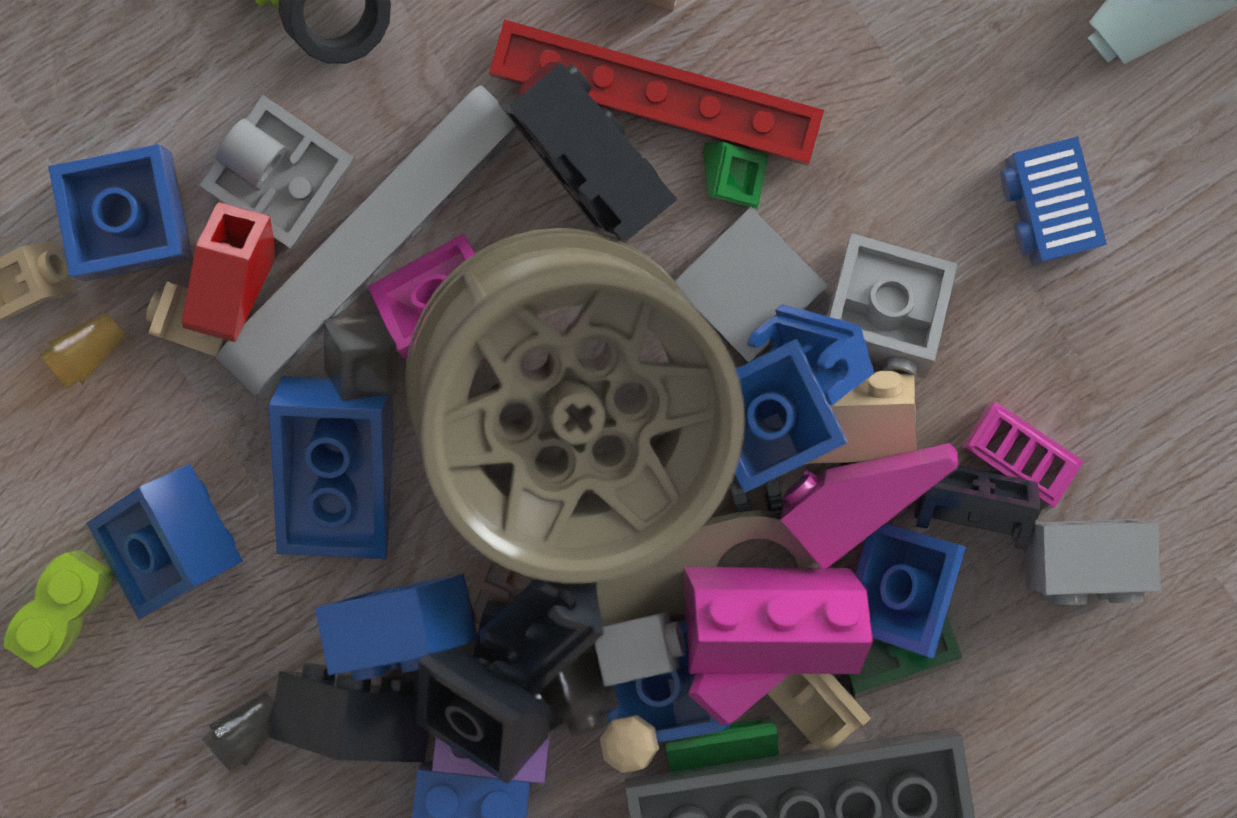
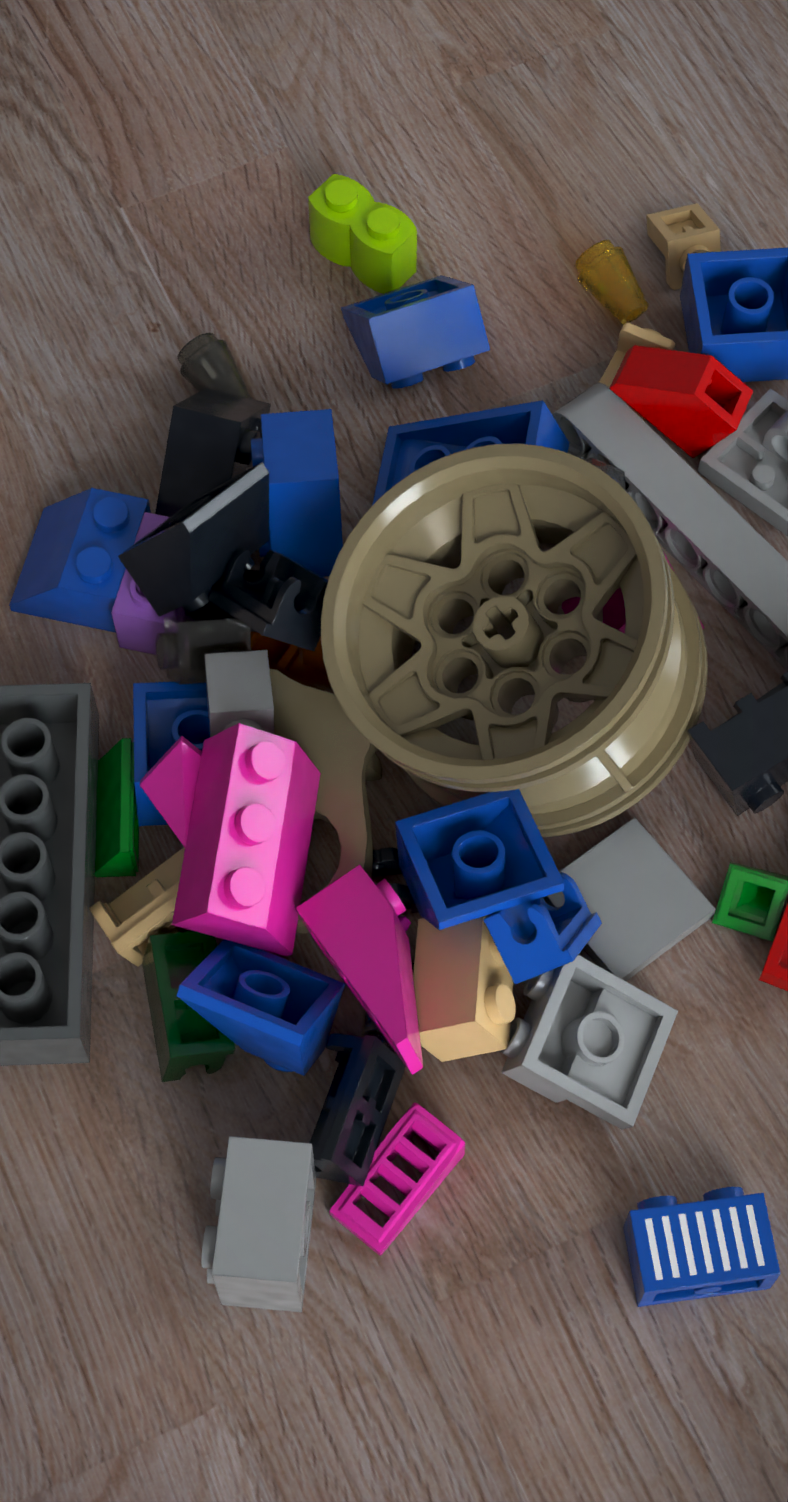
camera: 95 degrees right, 25 degrees down
(629, 743) = (137, 689): tan tile -> none

